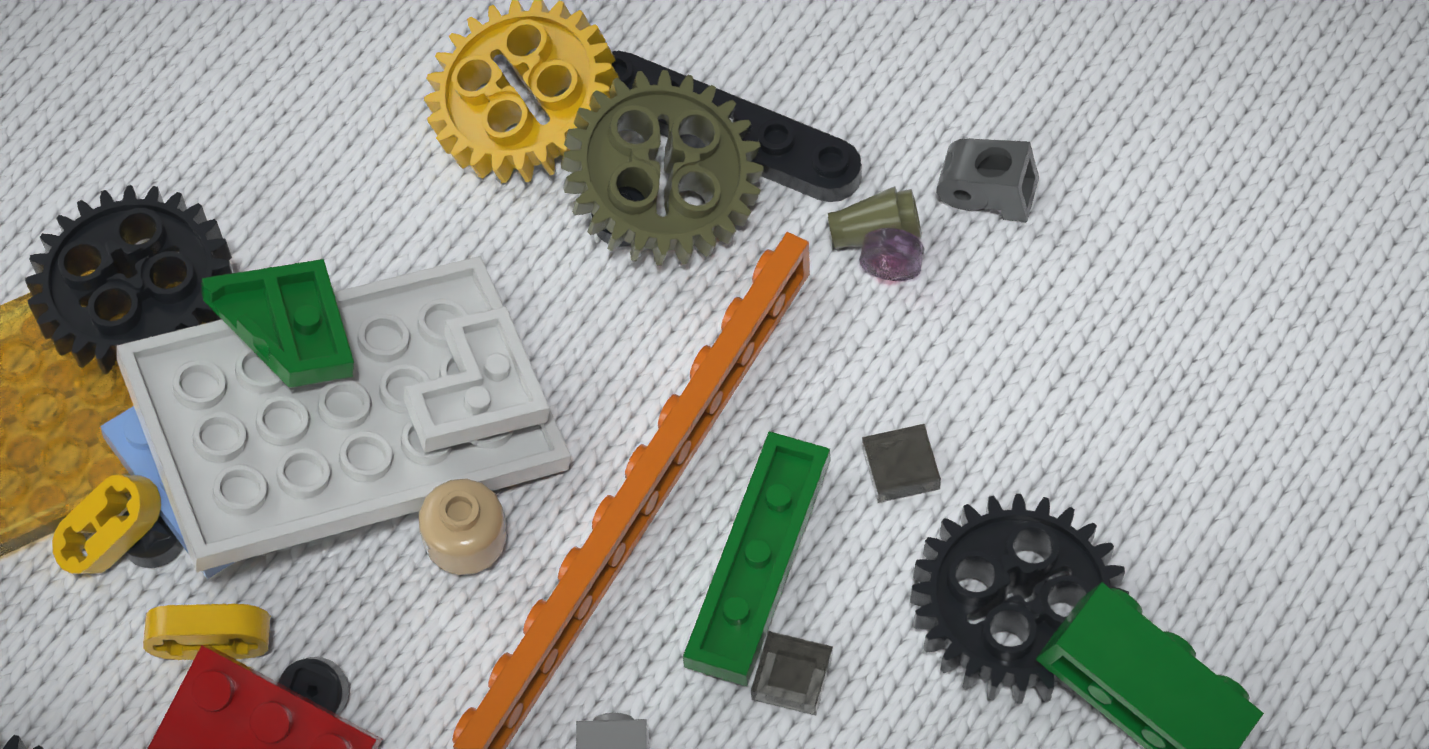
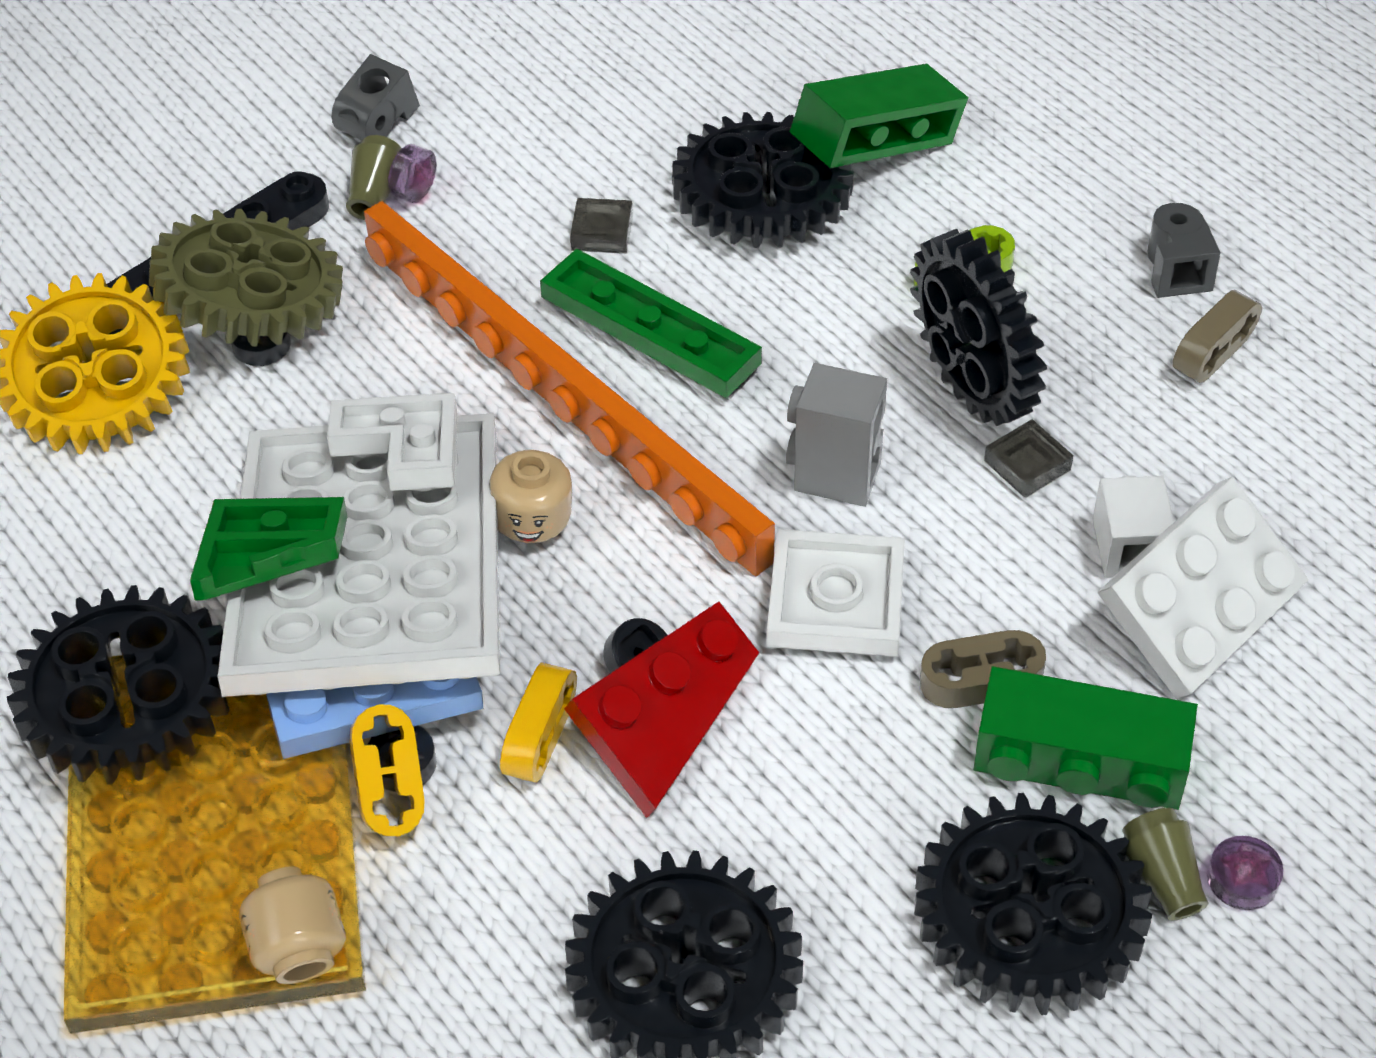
camera: 75 degrees left, 10 degrees down
(792, 673) = (769, 328): clear smoke tile -> none

